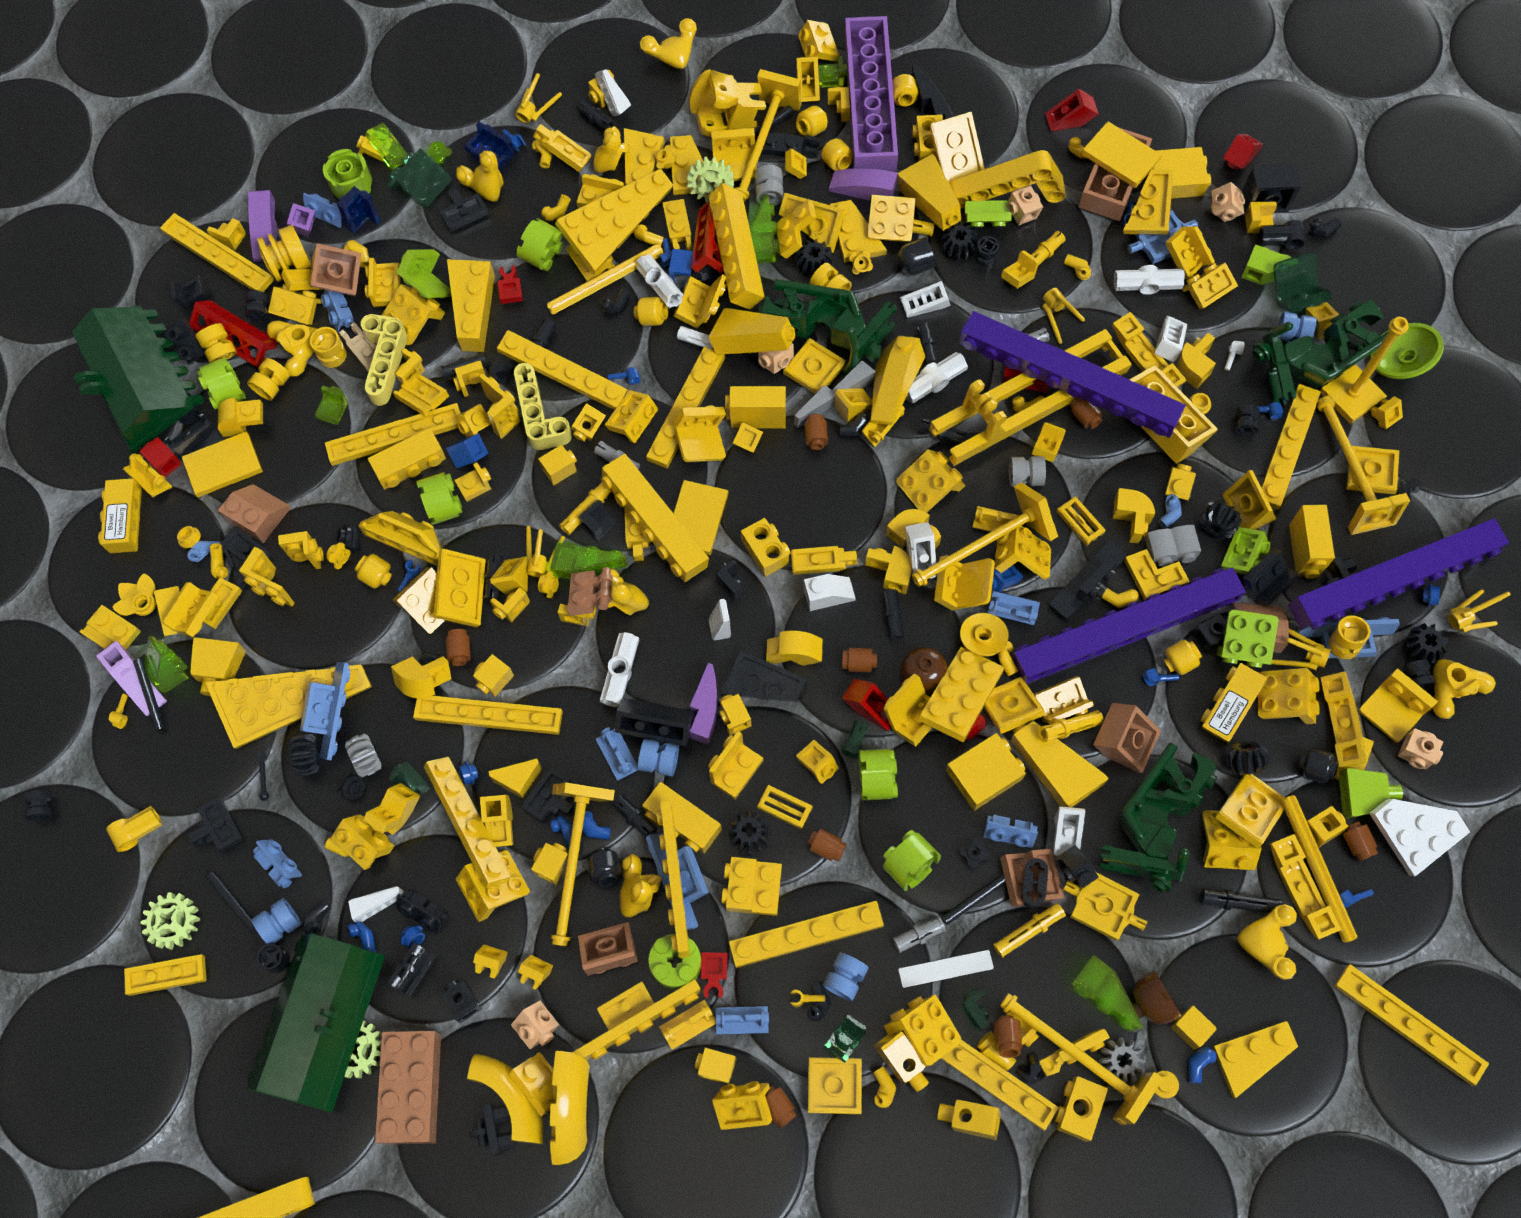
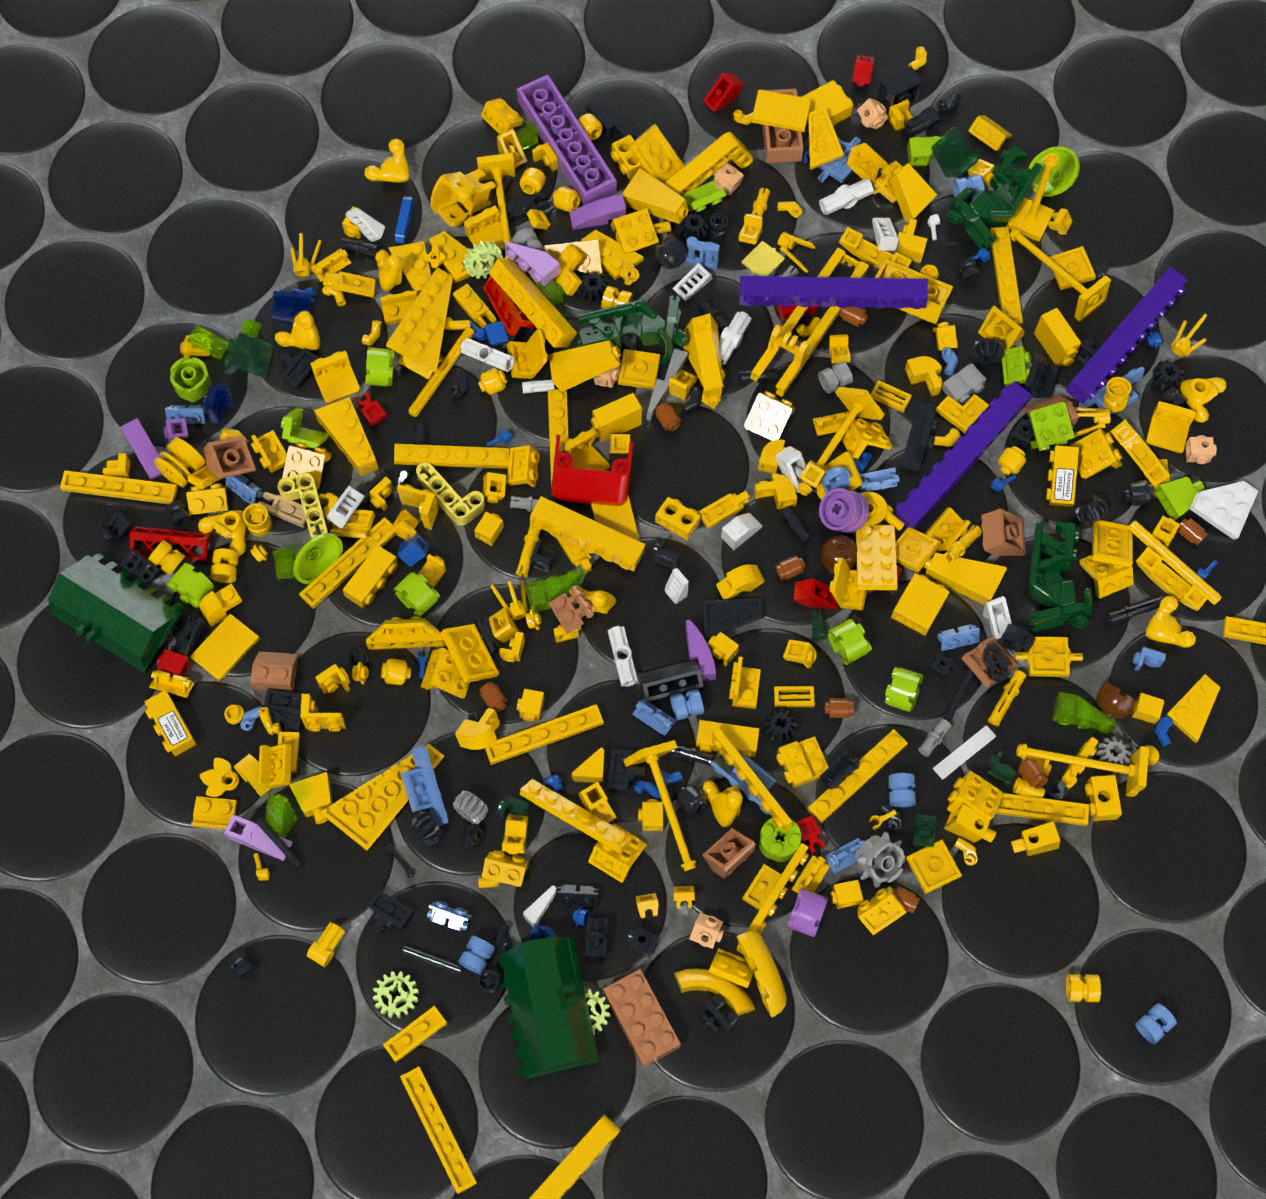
camera: 30 degrees left, 0 degrees up
(126, 1096) = (438, 1130): none -> yellow plate
(311, 382) = (259, 553): none -> yellow plate
(357, 411) = (316, 557): none -> lime dish
(407, 378) = (338, 516): none -> white slope
(492, 235) = (335, 377): none -> yellow bracket
(560, 120) = (331, 264): none -> yellow hinge
(656, 107) = (404, 220): none -> blue beam
(657, 1065) = (807, 912): none -> medium lavender brick
(688, 468) = (590, 484): none -> red windscreen
(763, 205) = (536, 262): none -> lavender slope
(773, 1046) = (880, 859): none -> light grey brick
(776, 919) = (834, 774): none -> black hinge
(937, 565) = (812, 473): none -> yellow slope
(952, 623) = (843, 510): none -> medium lavender wheel
(956, 273) = (708, 253): none -> medium blue plate
(960, 585) = (836, 478): none -> medium blue hair
(1018, 309) = (763, 260): none -> light yellow piece
(1225, 303) = (911, 191): none -> yellow slope
(1229, 968) = (1150, 657): none -> medium blue bracket
(1316, 166) = (921, 58): none -> yellow arm
(1354, 277) = (989, 132): none -> yellow panel

